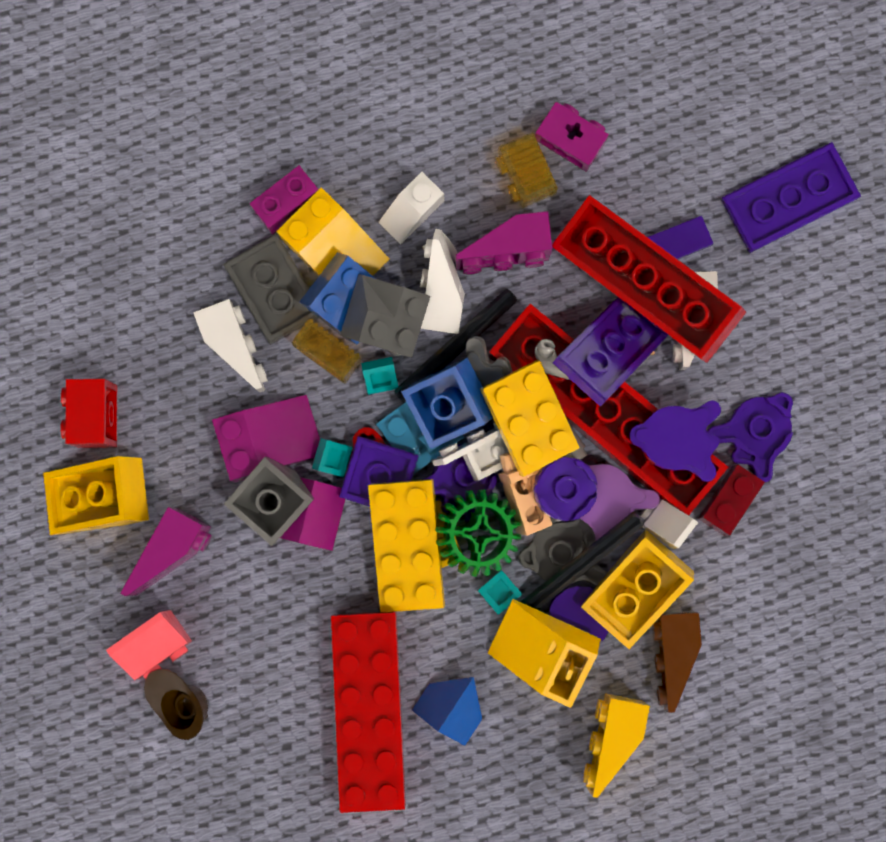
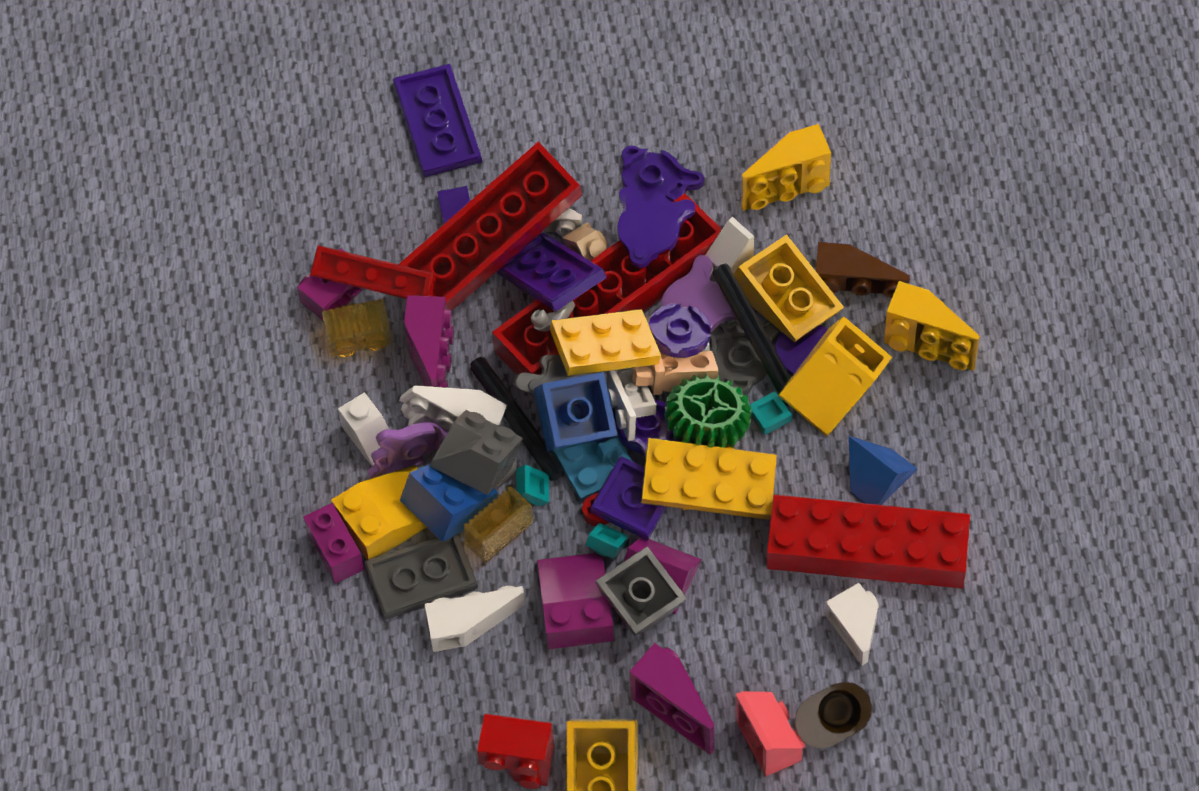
camera: 80 degrees left, 25 degrees down
(284, 710) = (854, 618): none -> white slope
(394, 250) = (405, 447): none -> medium lavender tile
(574, 172) = (371, 273): none -> red tile
(658, 377) = (586, 241): none -> tan brick
(731, 500) = (717, 199): dark red brick -> none
(792, 578) = (789, 168): none -> yellow slope

